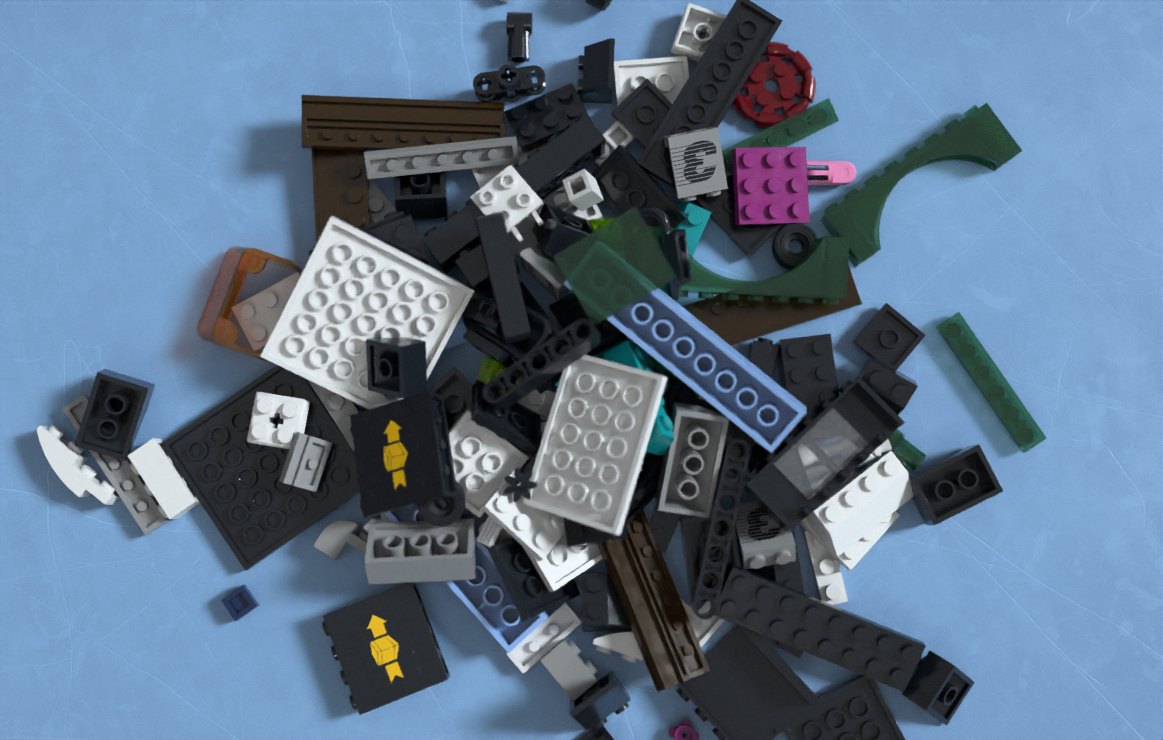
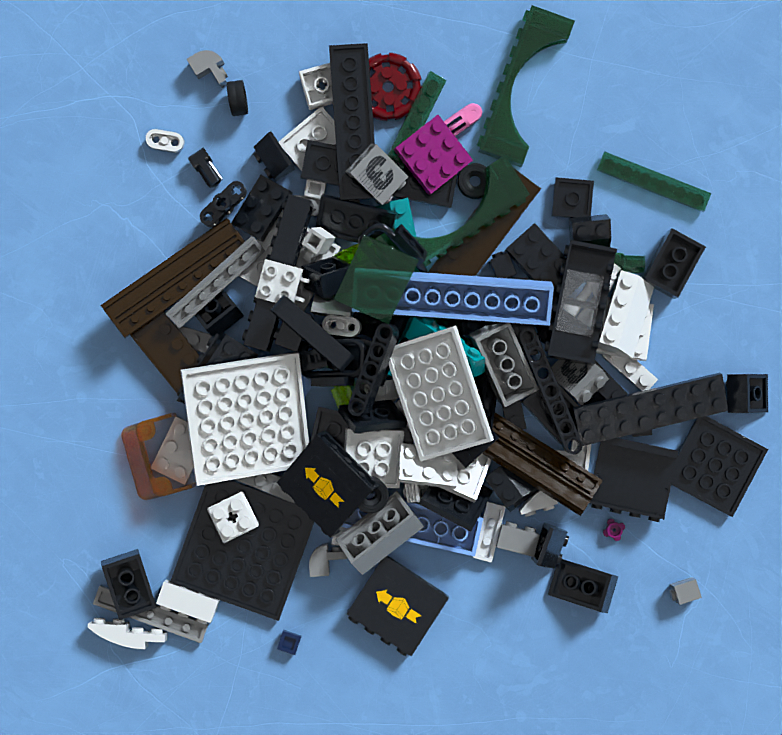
camera: 35 degrees left, 5 degrees up
(305, 461) = (268, 529): light grey plate -> none
(396, 366) = (284, 432): black slope -> none
(524, 485) = (414, 448): black plant -> none
(543, 297) = (342, 325): none -> white plate

